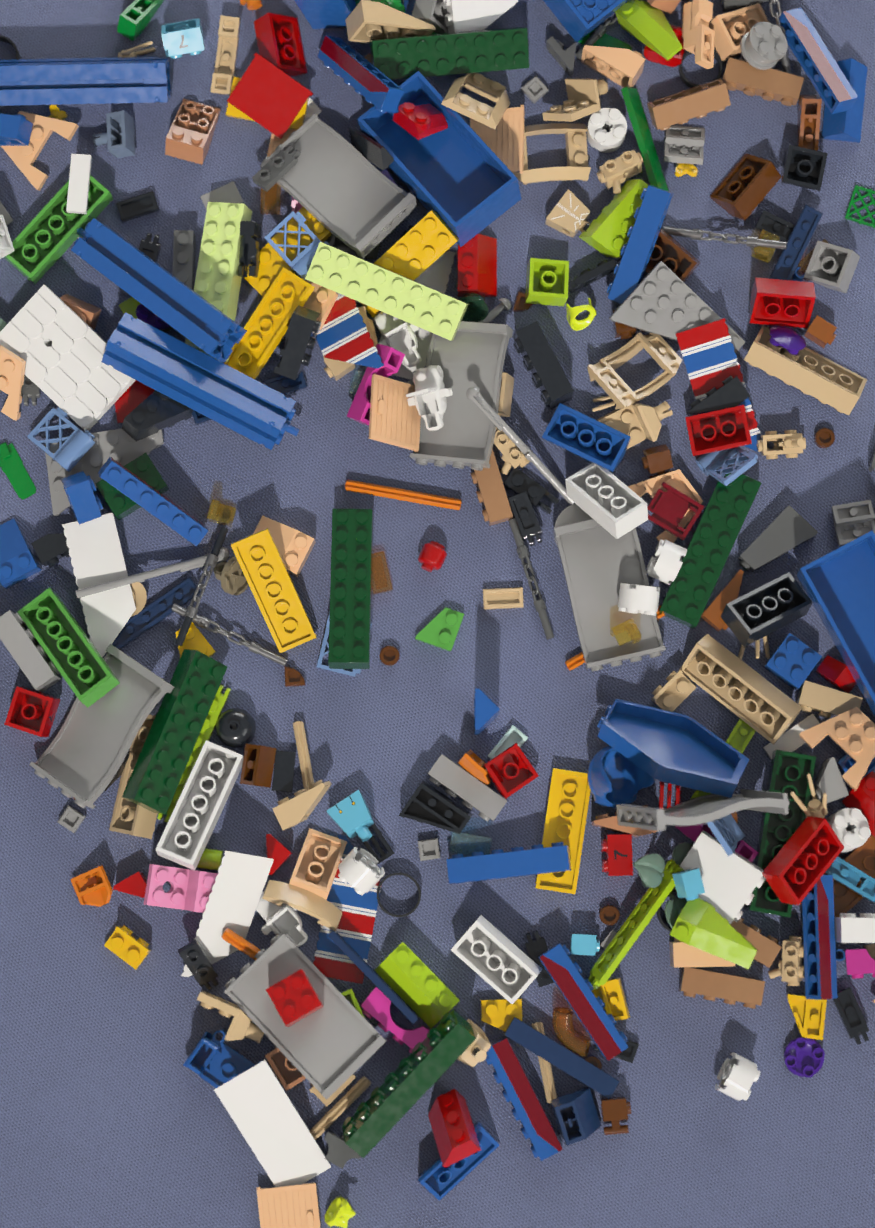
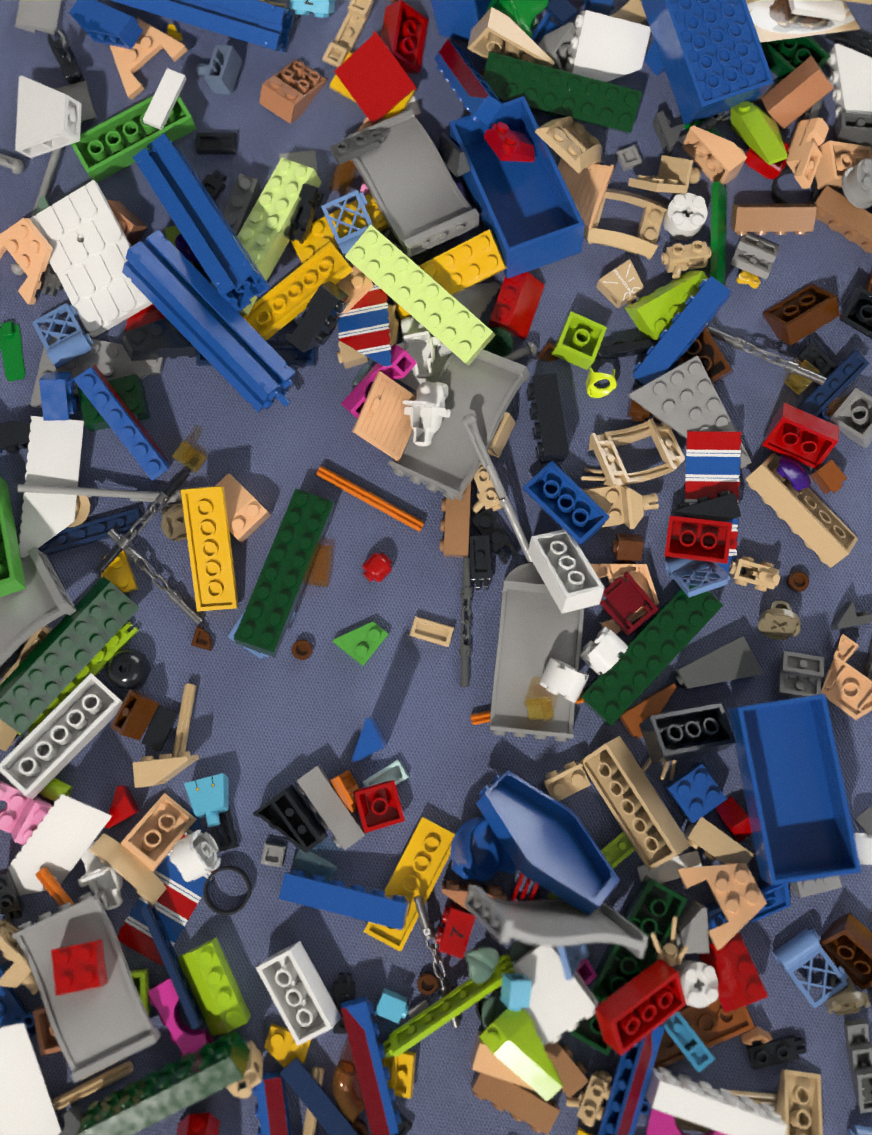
camera: 15 degrees right, 0 degrees up
(594, 868) = (428, 933): none -> flat silver piece
(818, 481) = (779, 621): none -> dark tan tile

